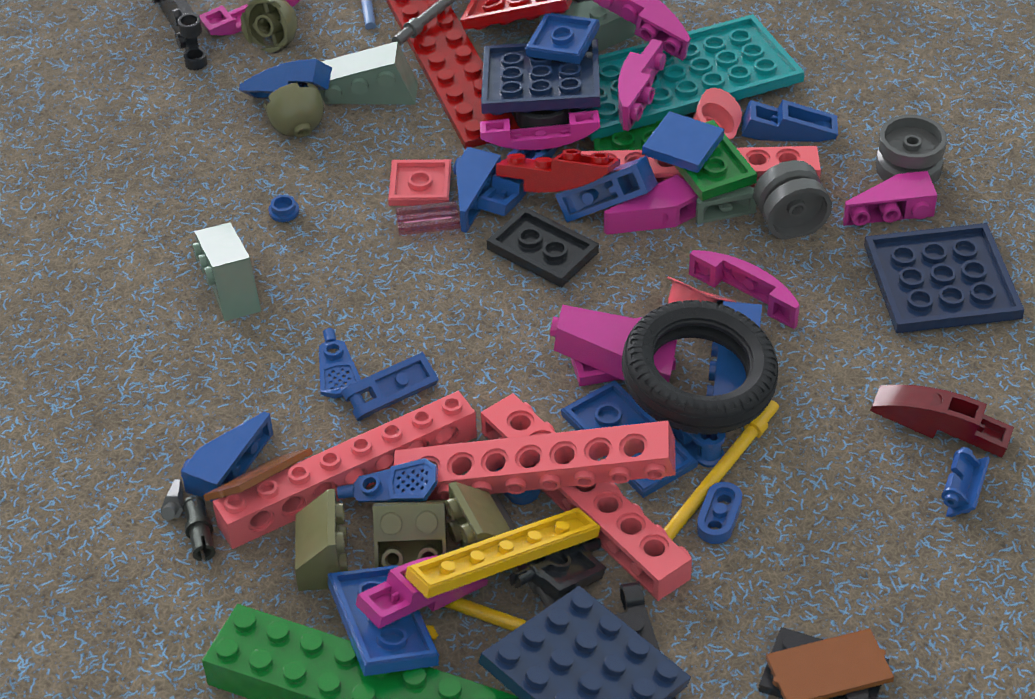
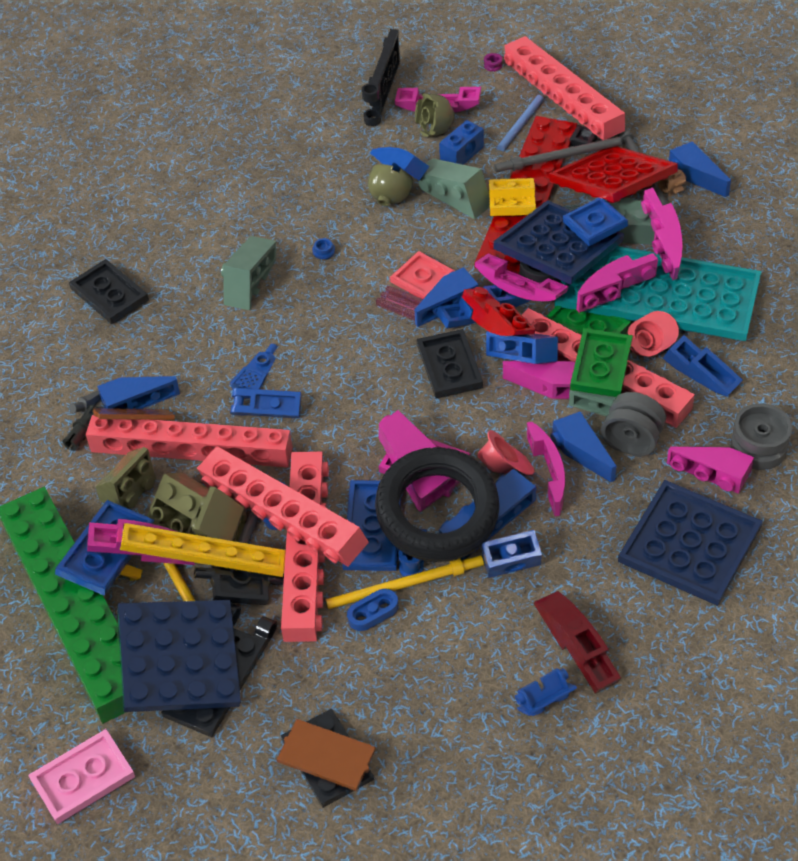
camera: 40 degrees right, 5 degrees up
(72, 375) = (108, 291): none -> black plate
(331, 34) = (462, 143): none -> blue brick
(391, 485) = (198, 468): blue piece -> none
(443, 60) = (511, 196): none -> yellow slope
(683, 142) = (591, 340): blue tile -> none
(763, 246) = (582, 445): none -> blue slope
(804, 377) = (511, 553): none -> blue brick

